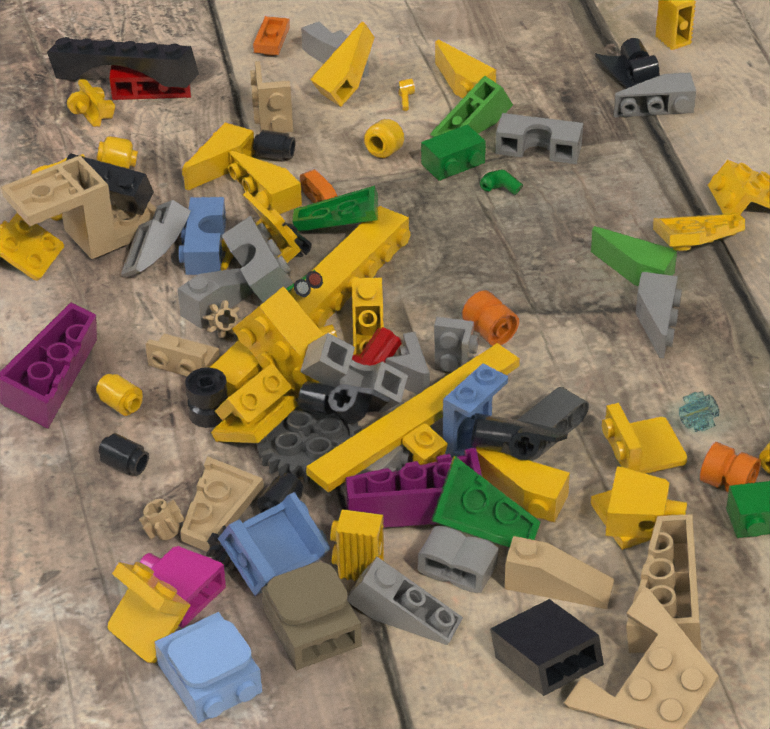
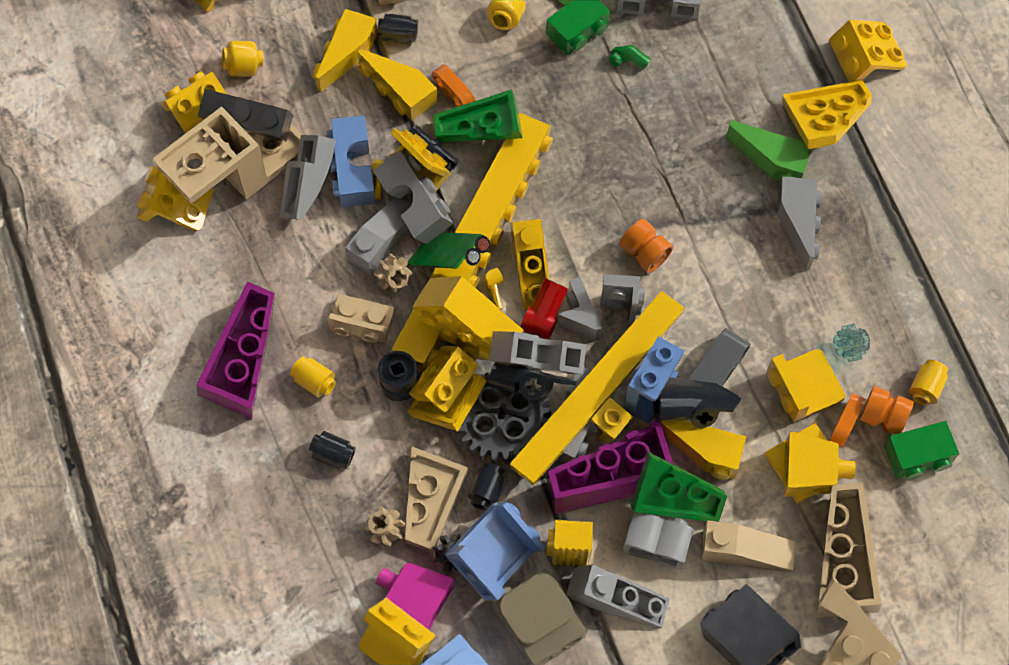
camera: 10 degrees left, 25 degrees up
(685, 476) = (847, 419): none -> orange beam

